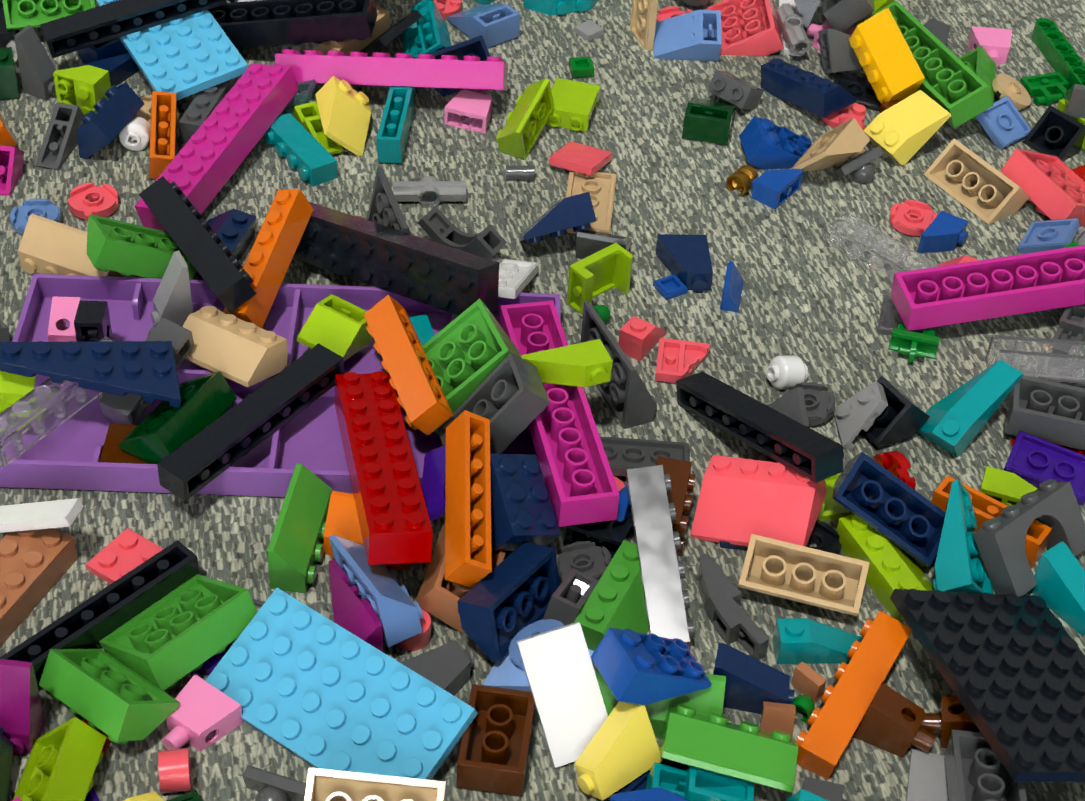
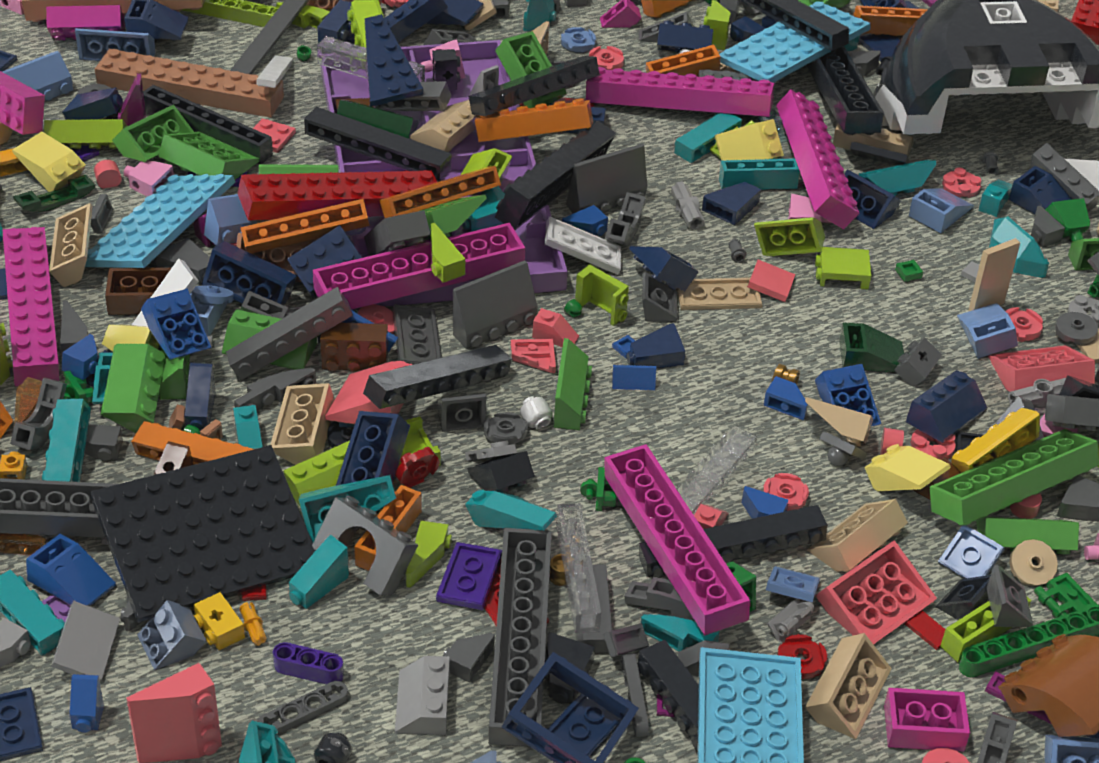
camera: 80 degrees right, 0 degrees up
(437, 154) = (732, 202): none -> dark blue slope
(751, 335) = (572, 387): none -> bright green slope
(990, 241) = (755, 536): none -> black brick

